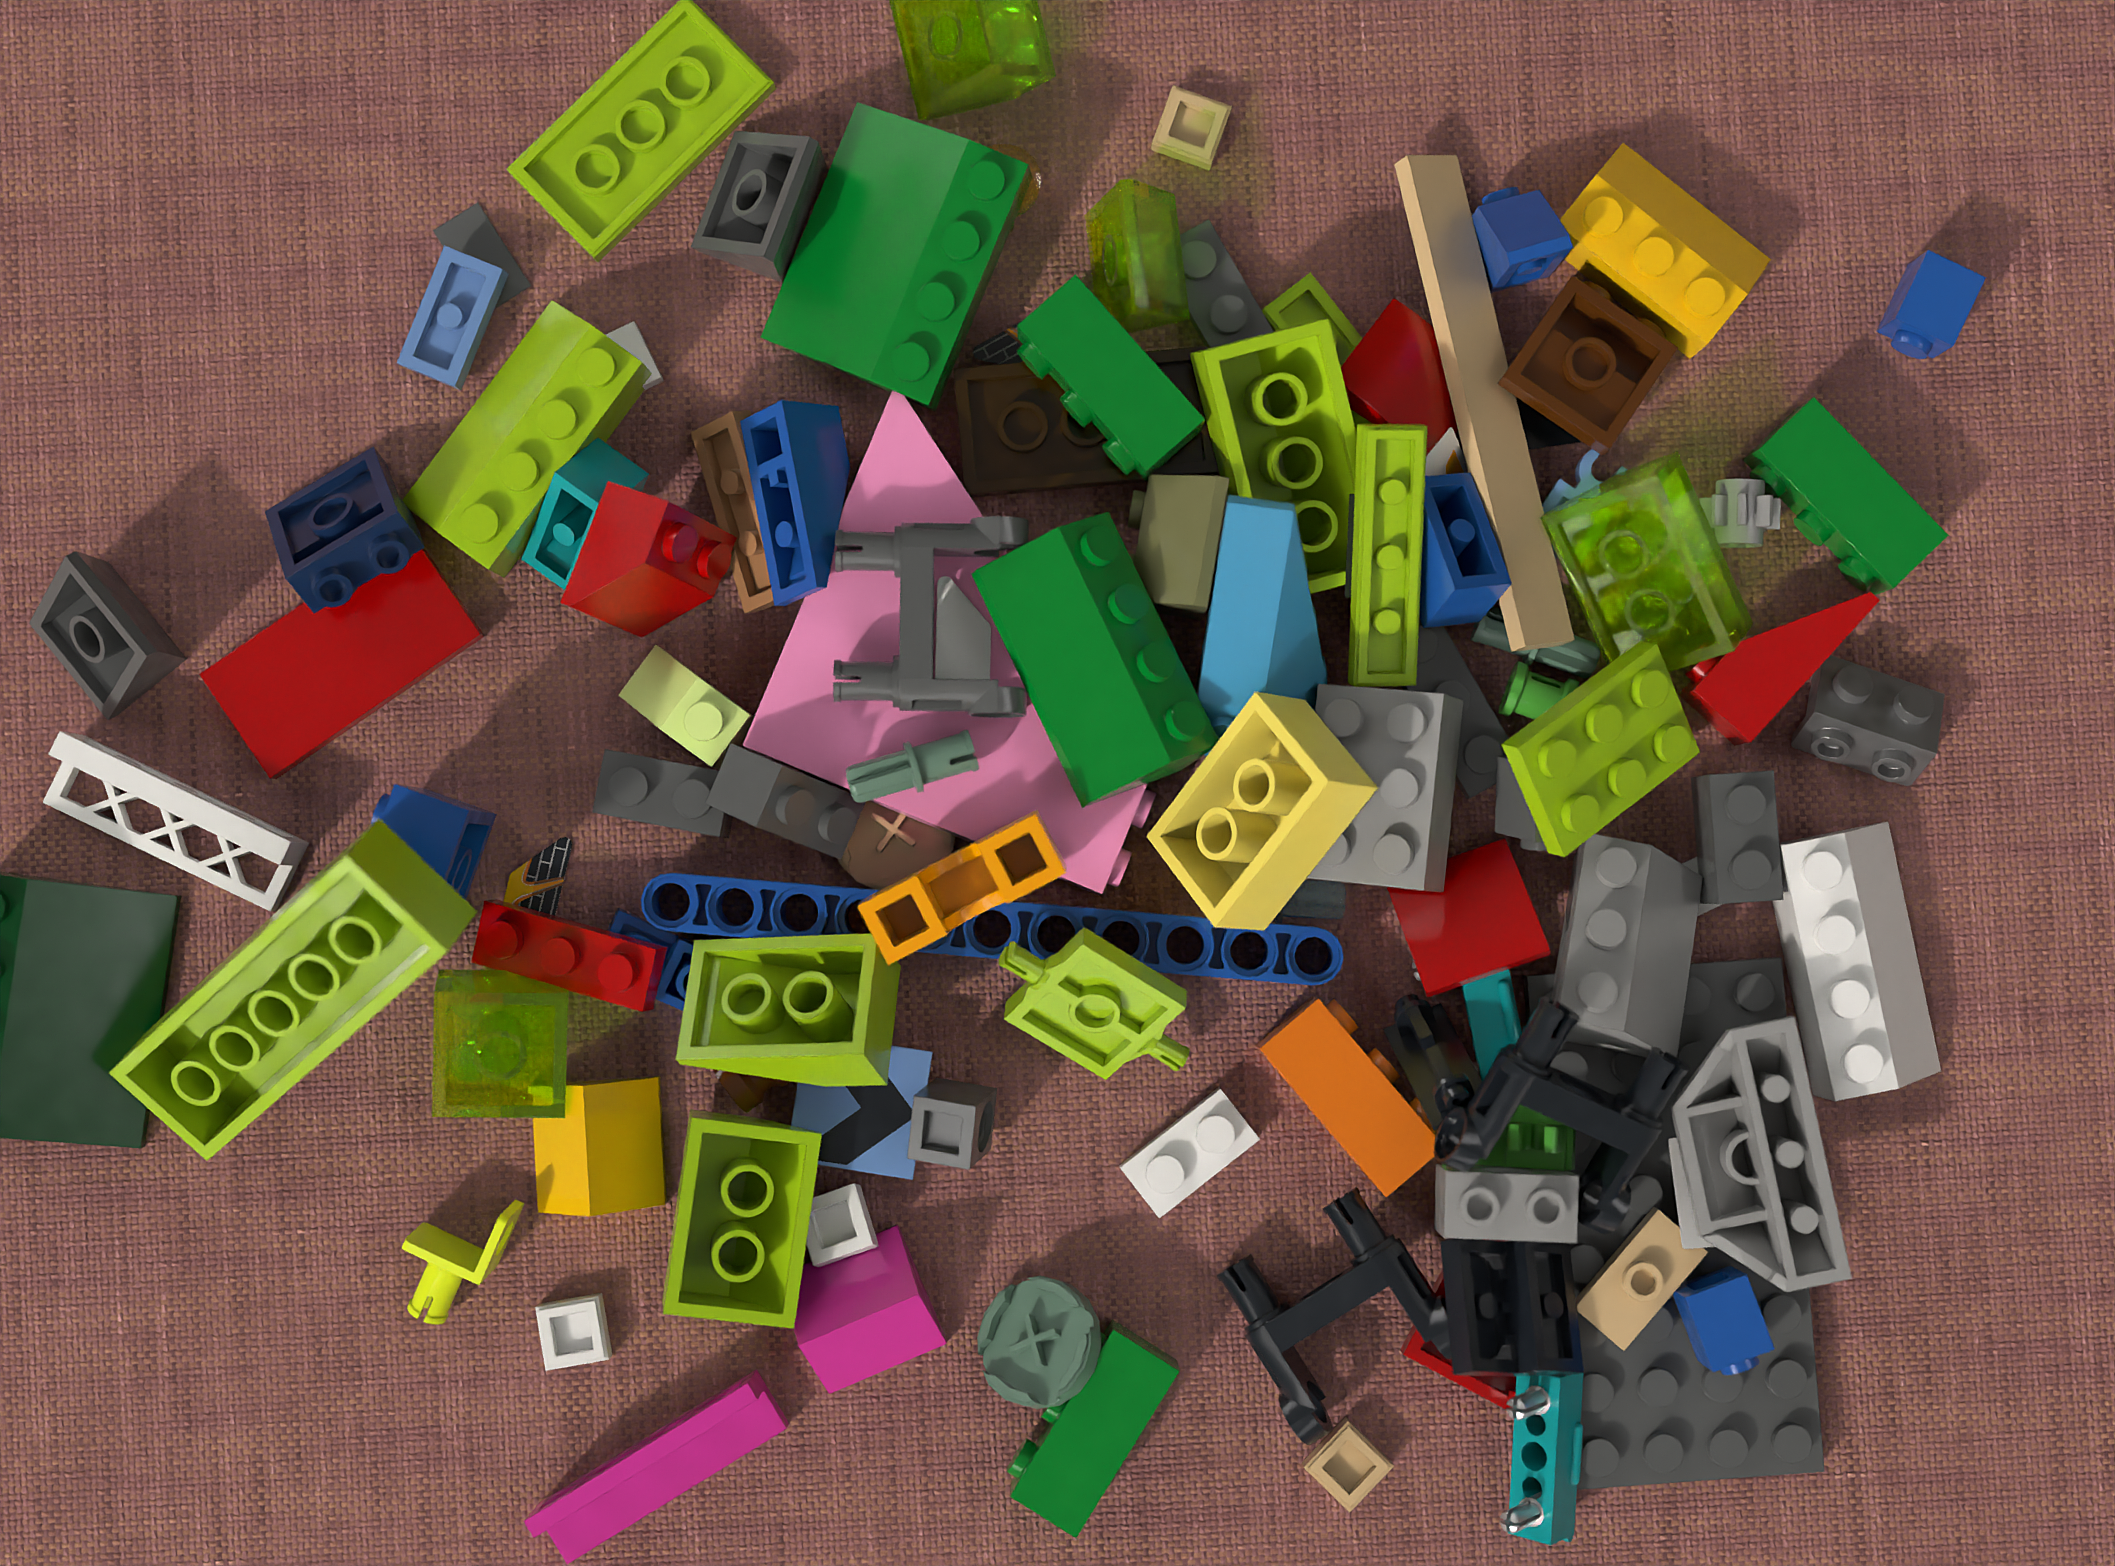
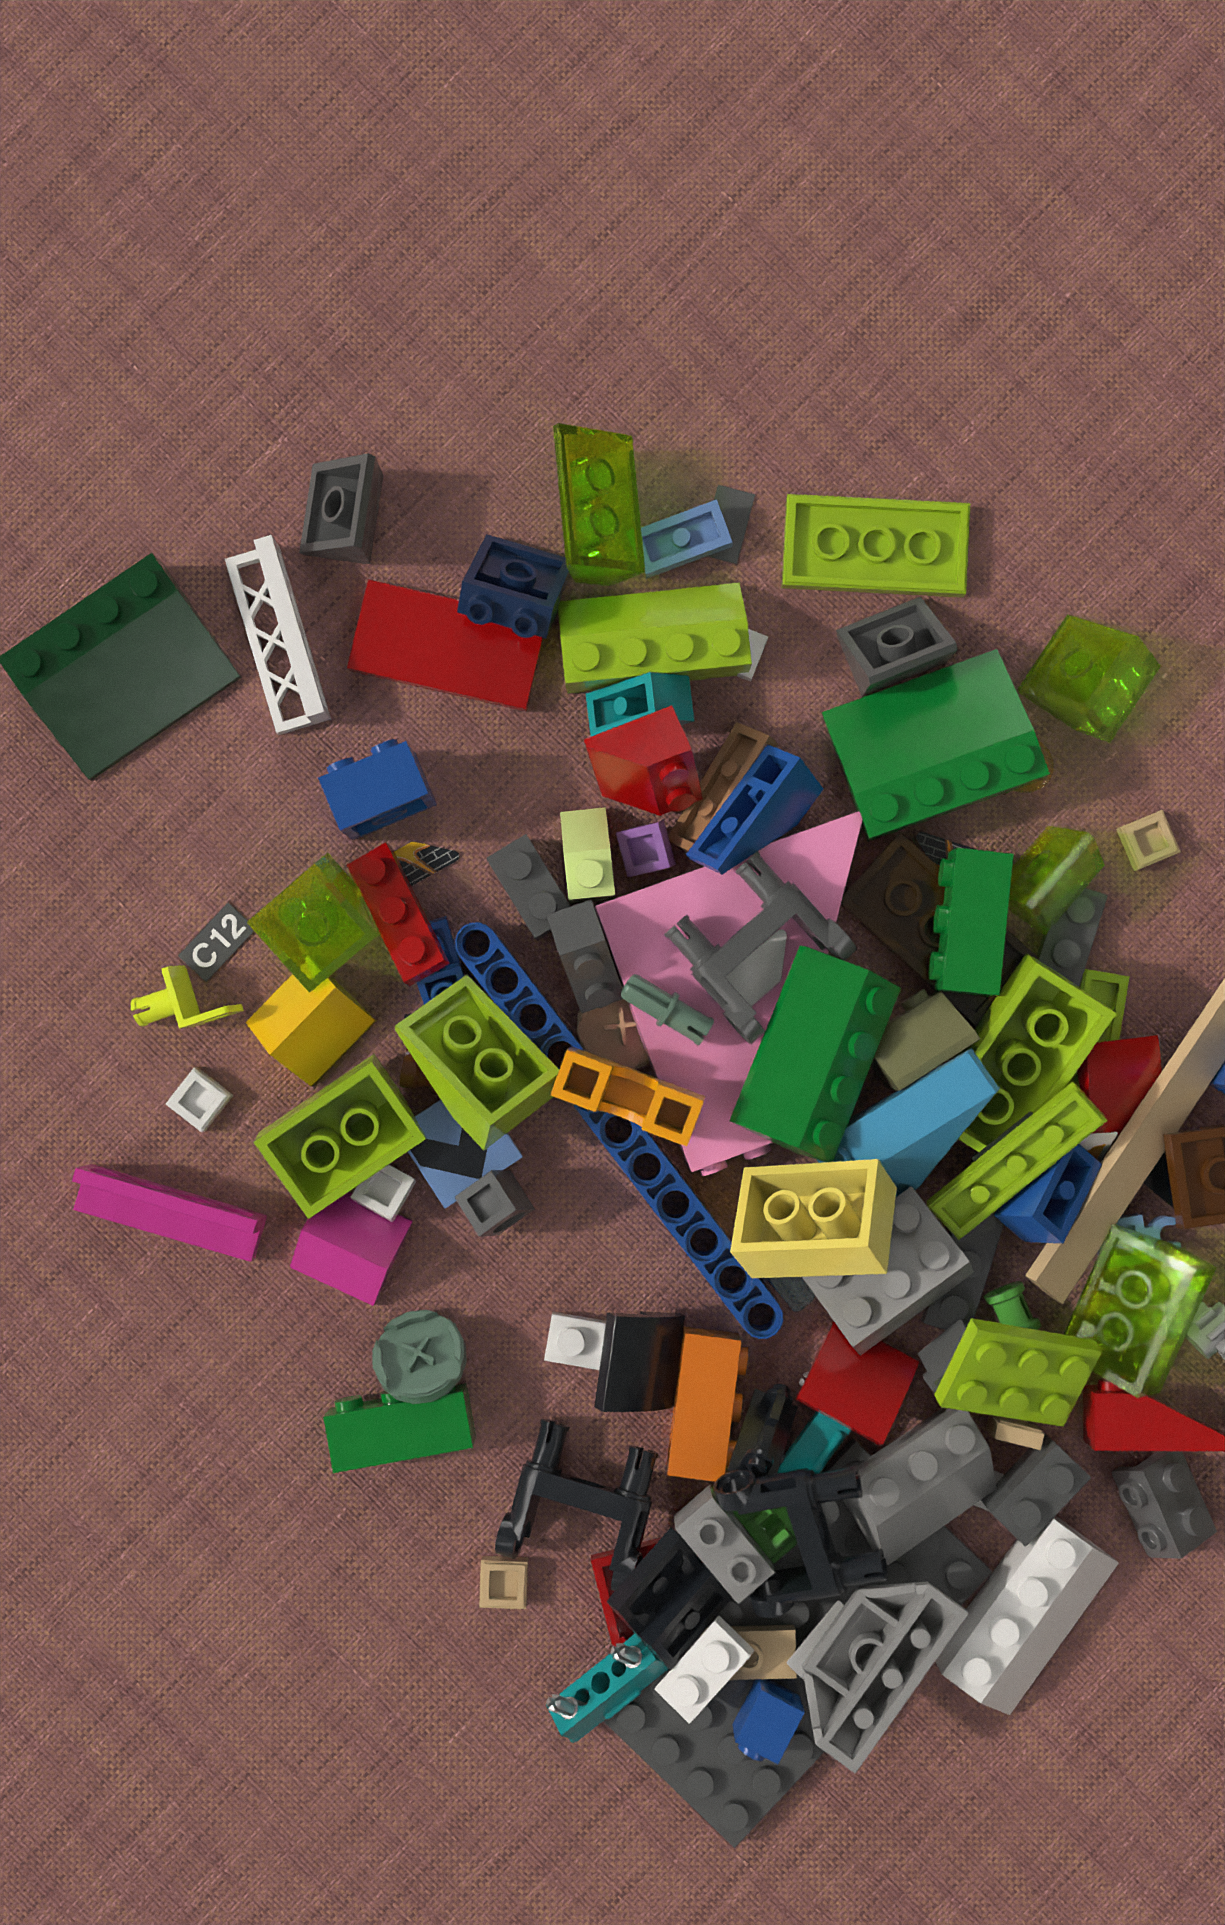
camera: 50 degrees right, 0 degrees up
(295, 990) = (248, 789): lime brick -> none
(337, 369) = (598, 505): none -> clear neon green slope
(429, 1167) = (216, 942): none -> dark grey sticker
(734, 641) = (645, 848): none -> medium lavender plate
(1095, 1004) = (628, 1222): lime plate -> none
(1247, 1121) = (639, 1361): none -> black slope
(1575, 657) = (1052, 1312): sand green axle -> none
(1614, 1337) = (704, 1669): none -> white plate
(1660, 804) = (1015, 1431): none -> tan tile

